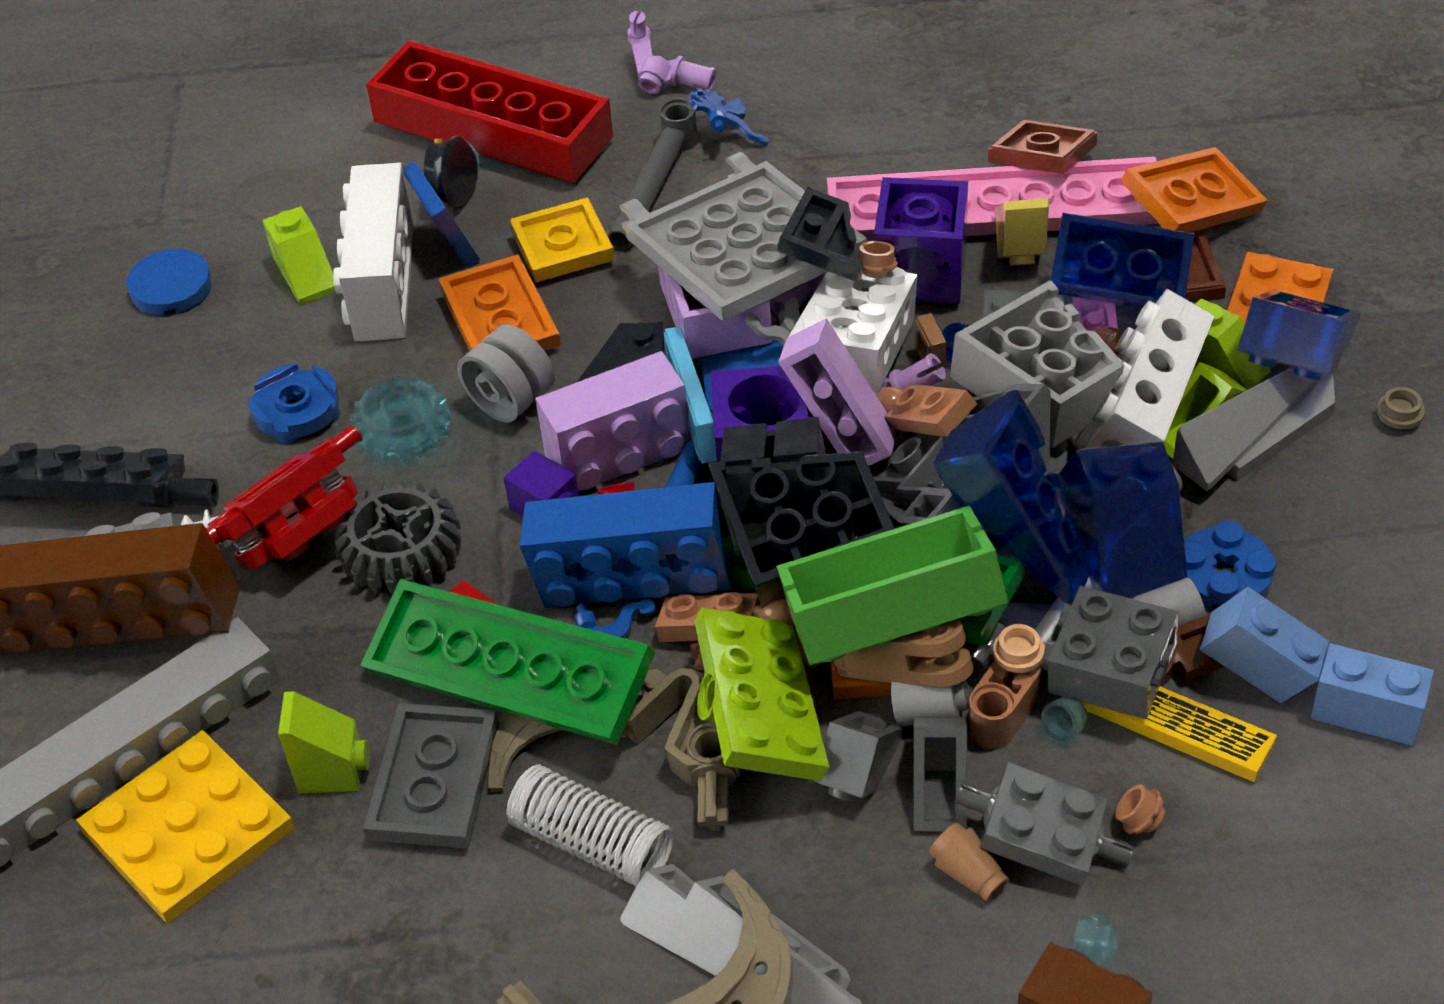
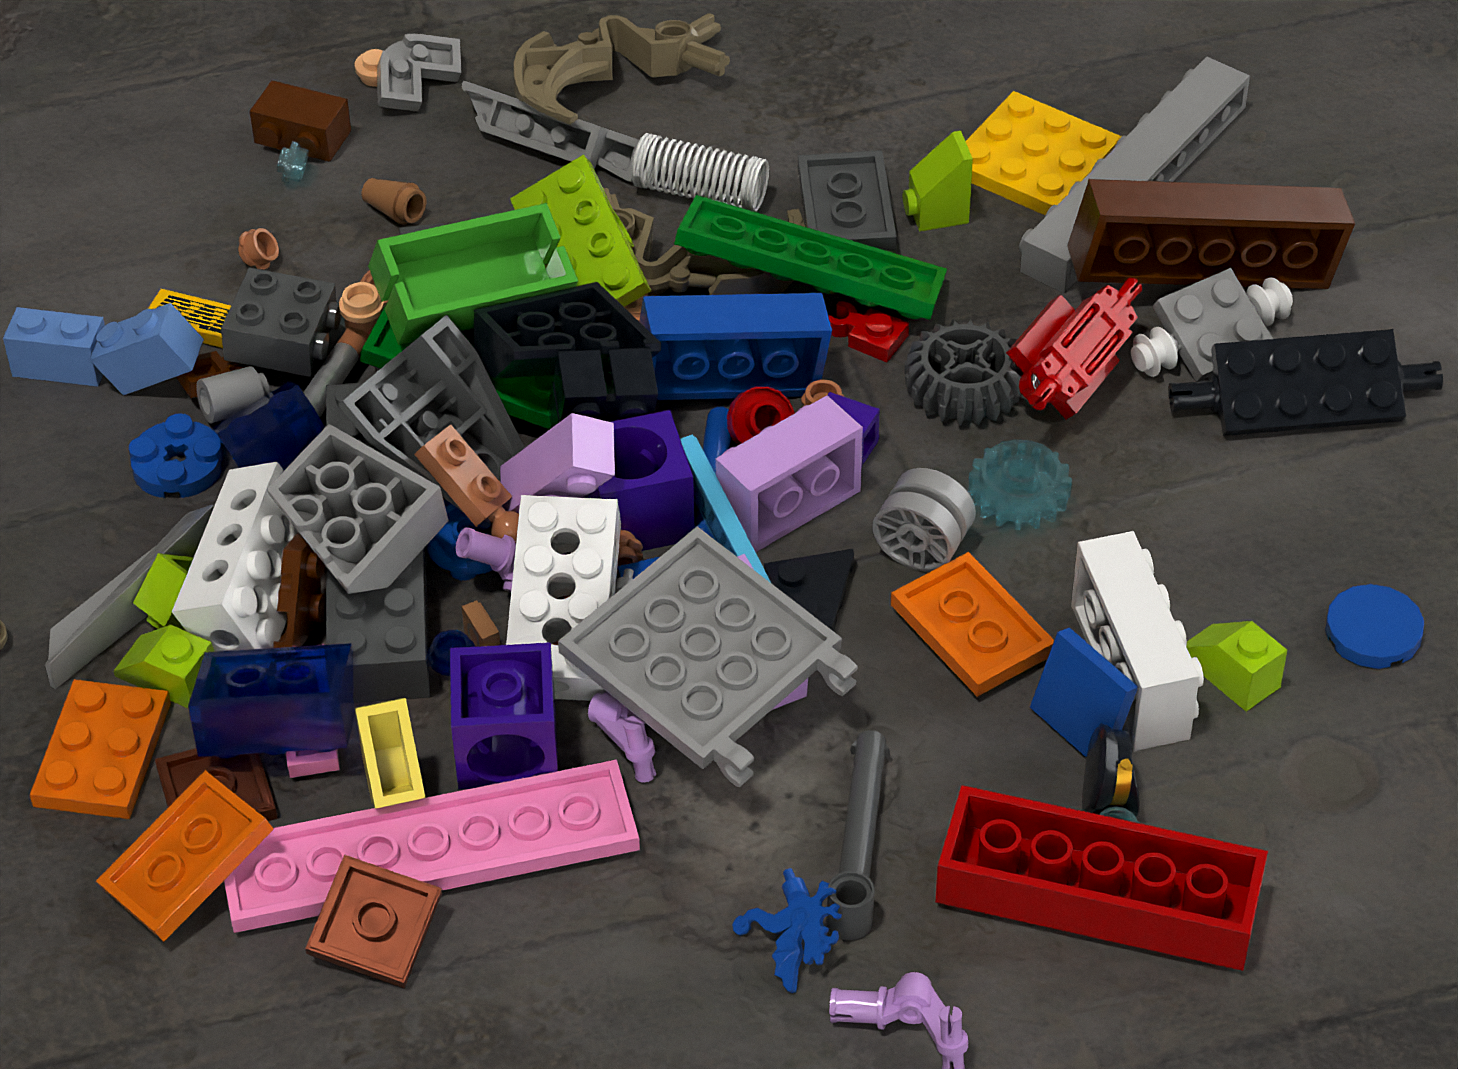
camera: 165 degrees right, 0 degrees up
(289, 422) = (1145, 517): blue plate -> none
(562, 239) = (938, 725): yellow plate -> none
(822, 234) = (606, 610): black wing -> none
(877, 258) = (545, 624): nougat plate -> none
(1001, 475) = (377, 334): clear blue wedge -> none
(1044, 824) = (335, 223): dark grey plate -> none
(1297, 333) = (77, 648): clear blue slope -> none

